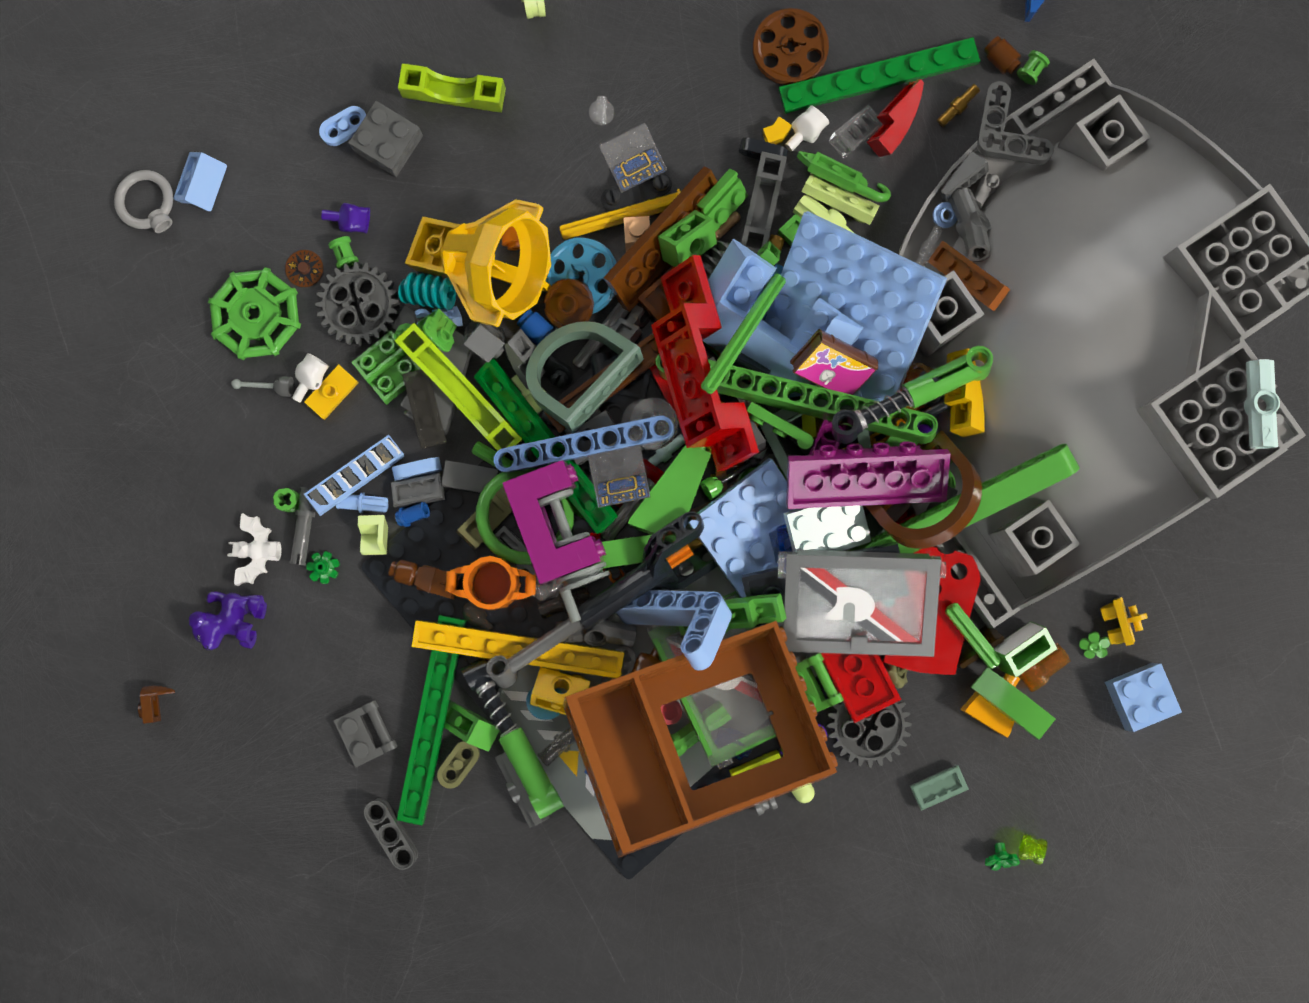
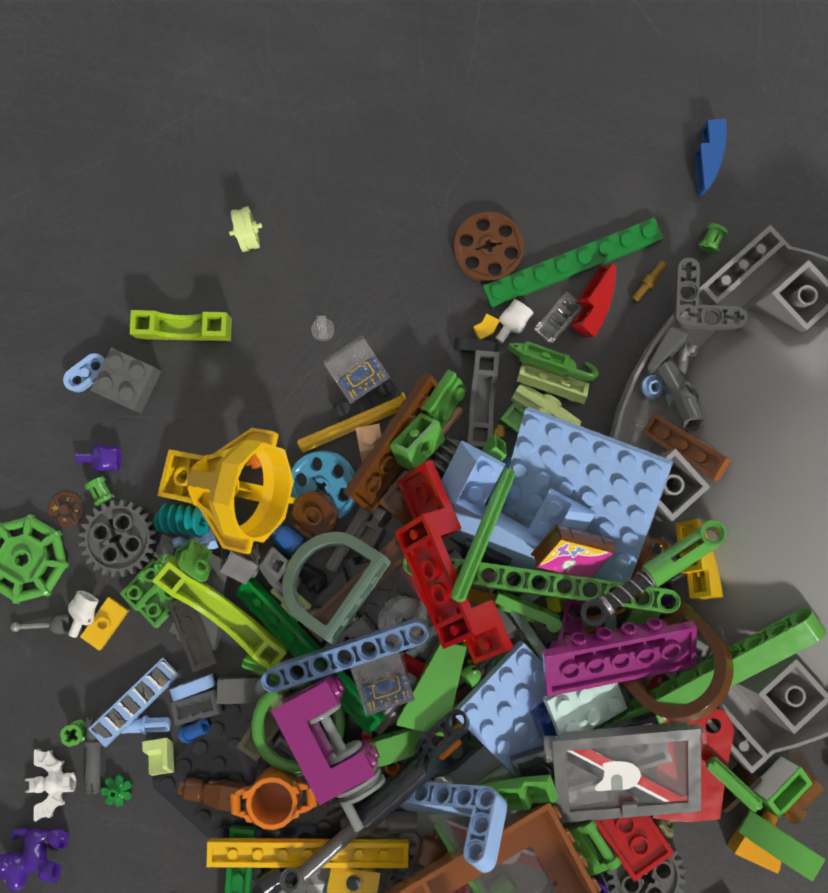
camera: 10 degrees left, 0 degrees up
(1003, 55) = (683, 231): reddish brown brick -> none

